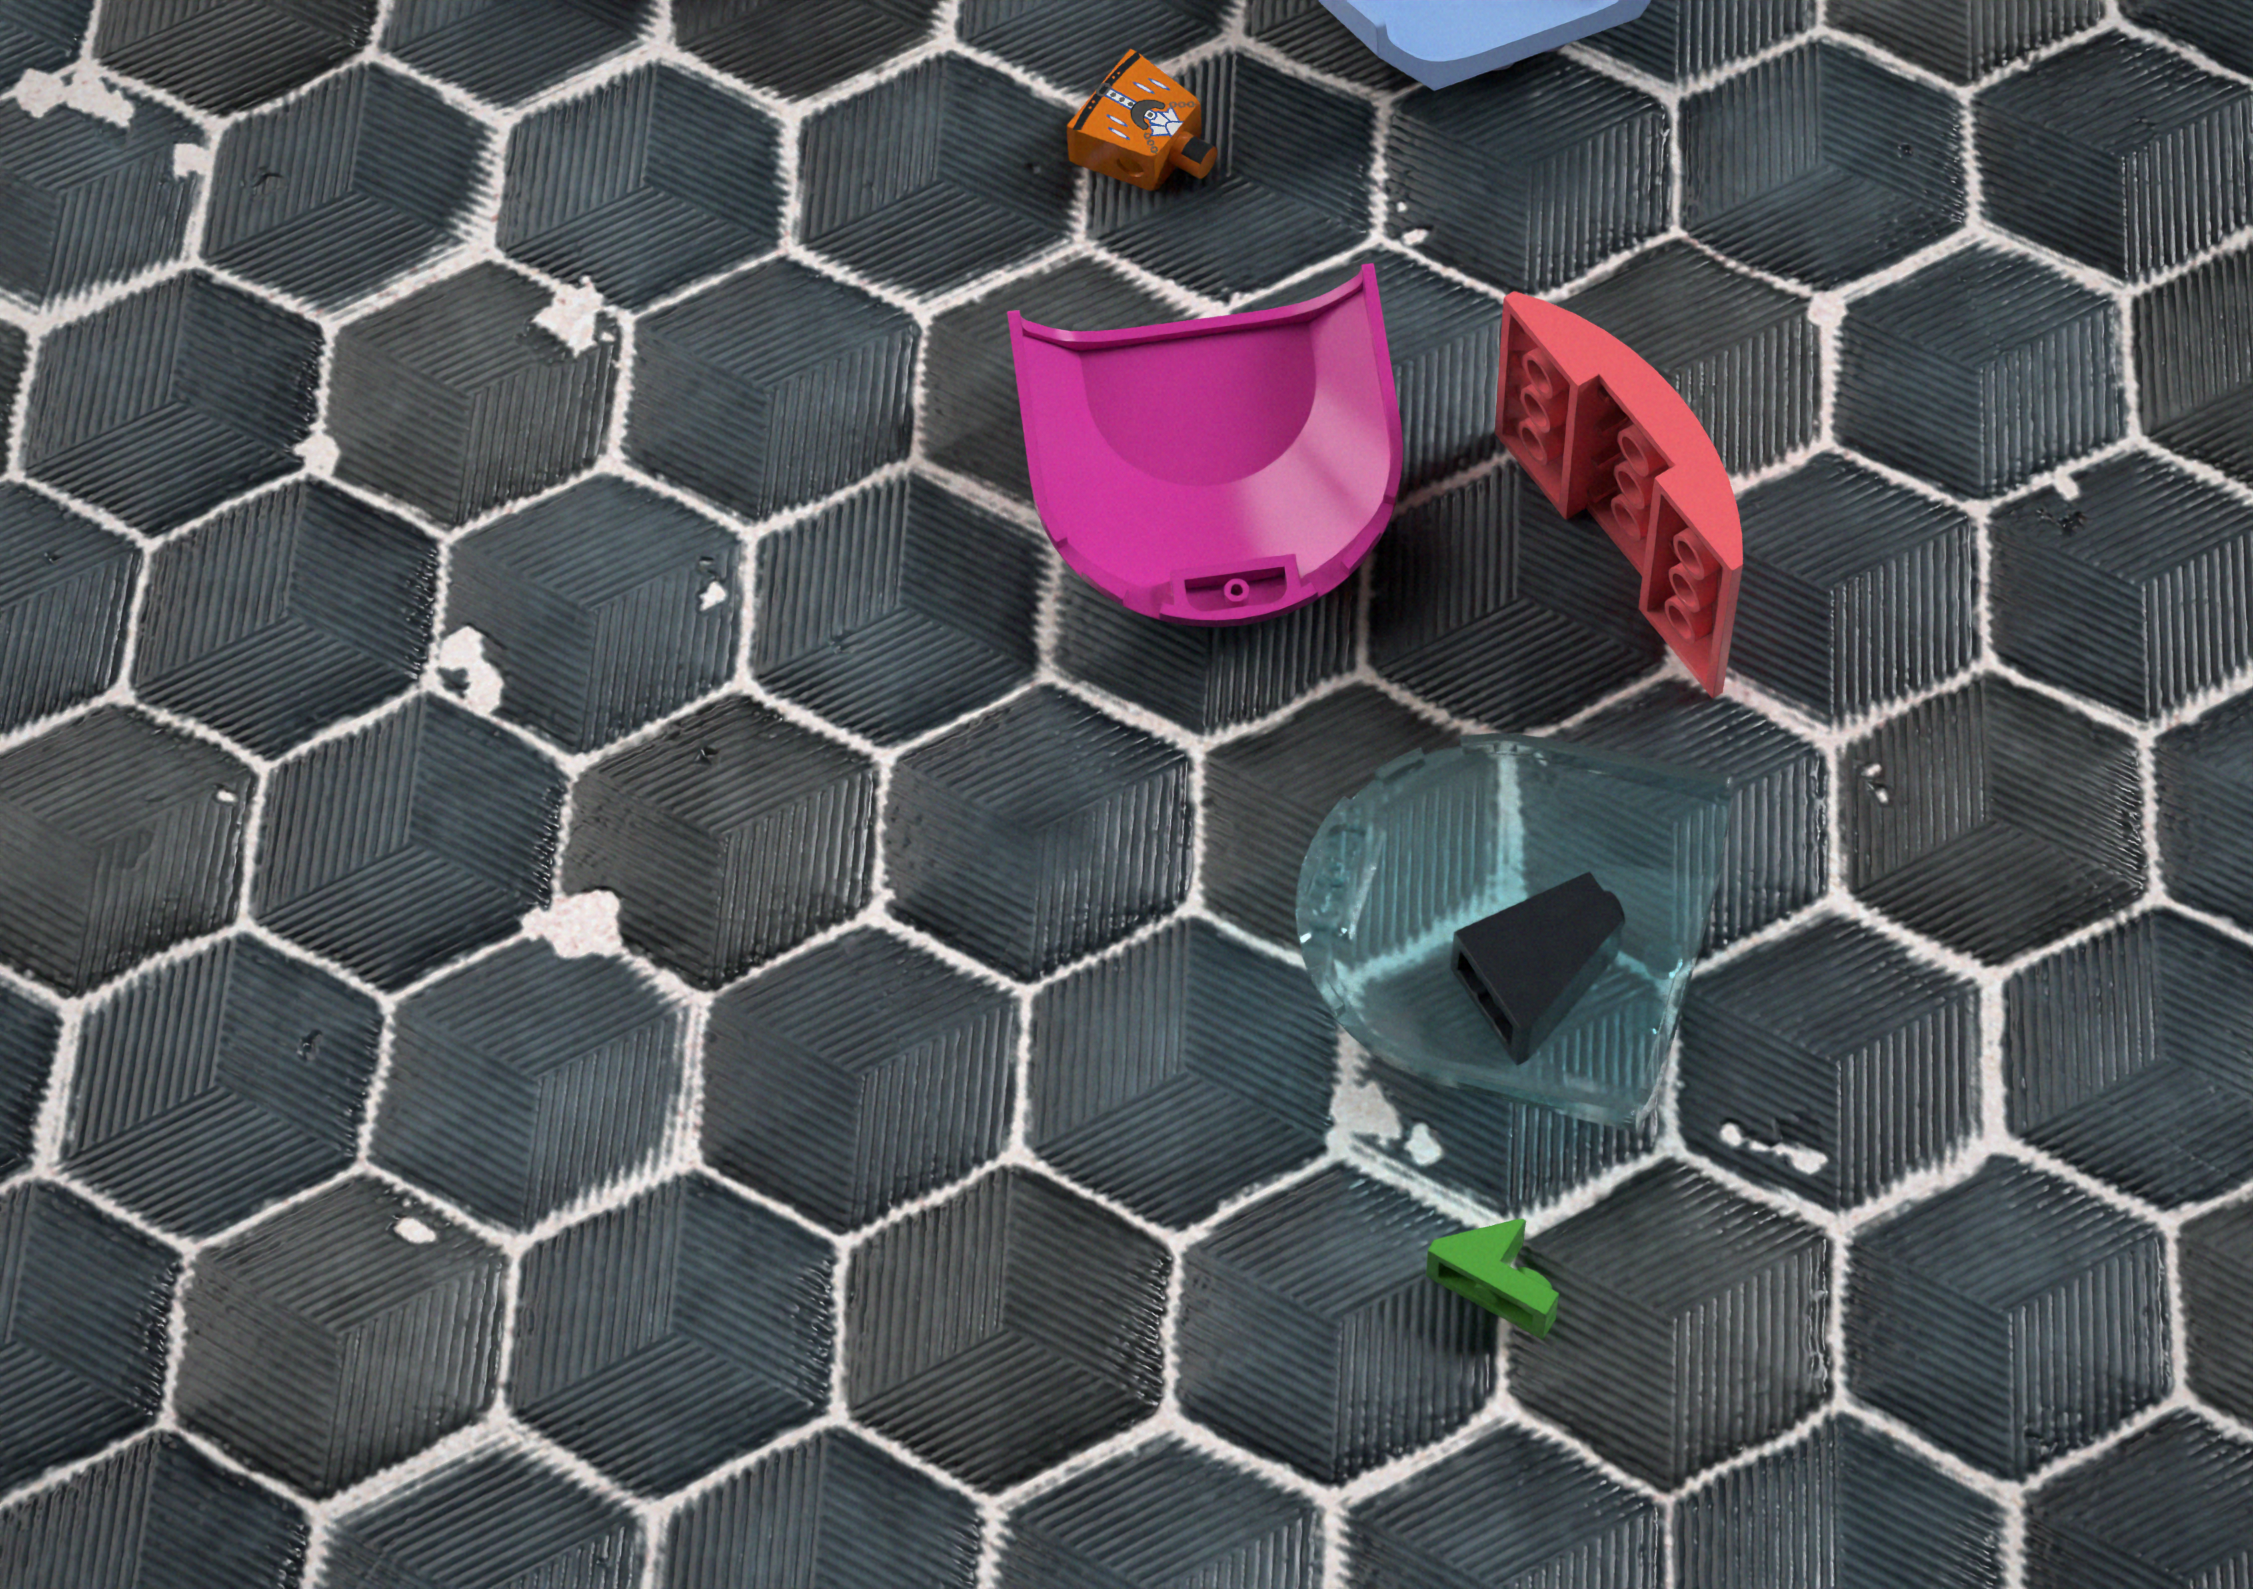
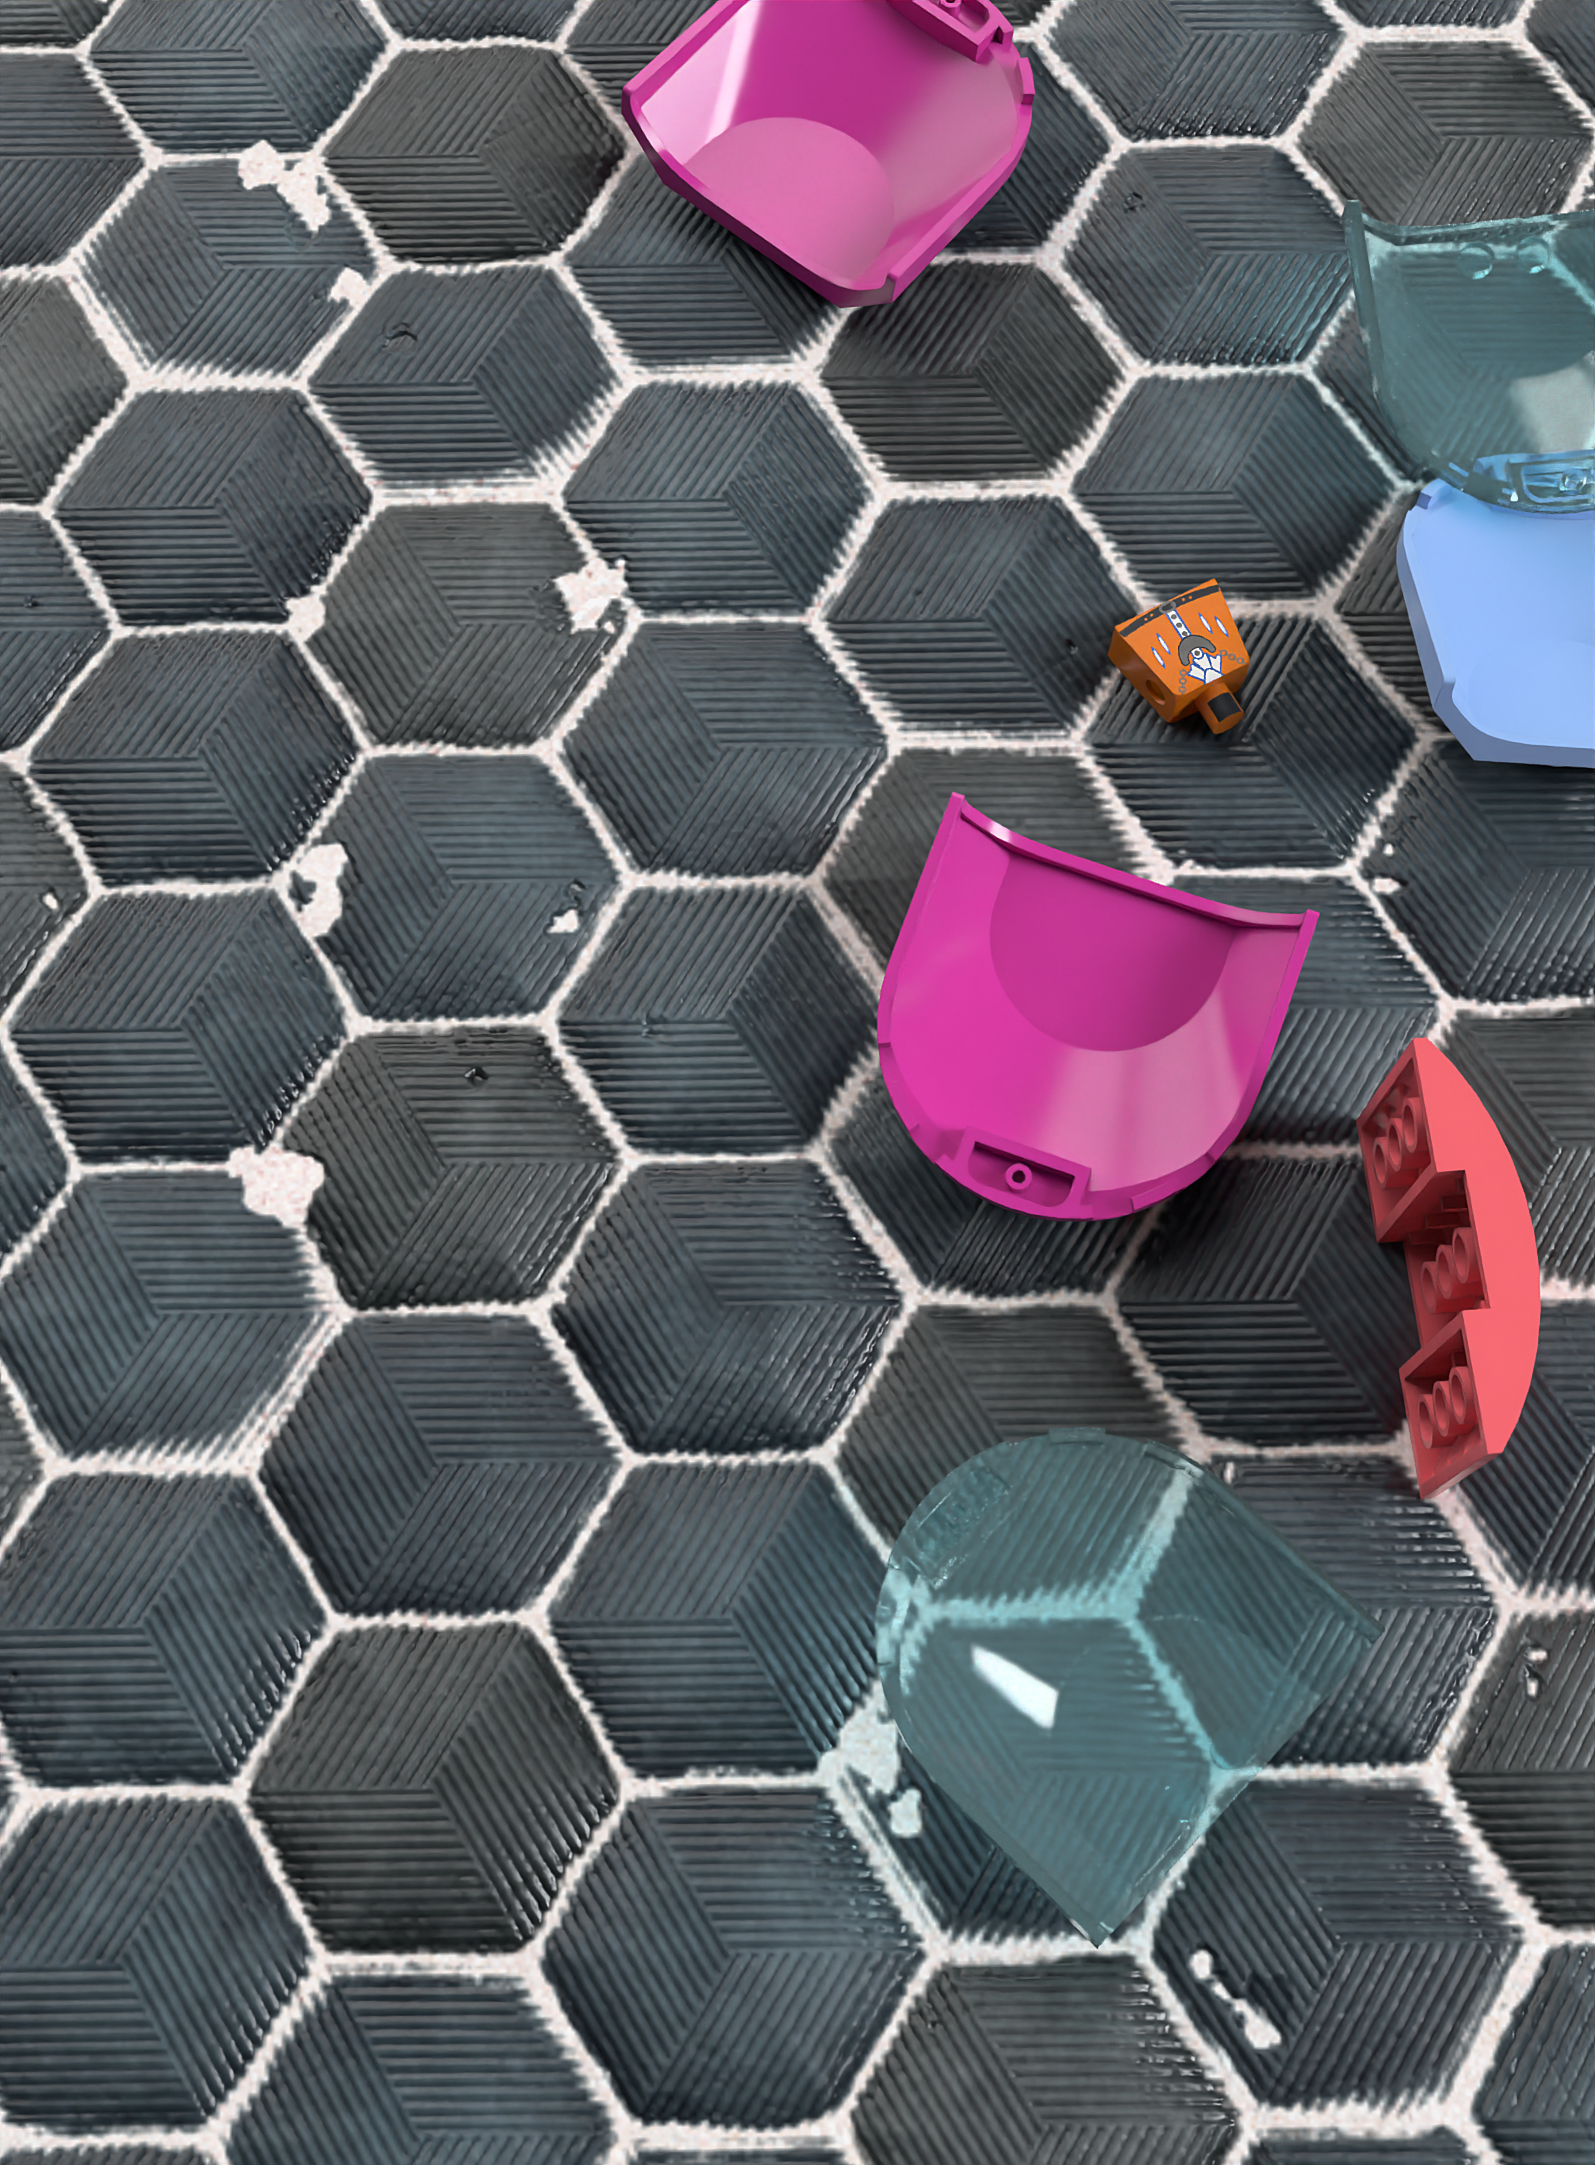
camera: 25 degrees right, 10 degrees up
(1479, 1269) = (884, 1983): bright green slope -> none
(1538, 960) = (1103, 1706): black slope -> none

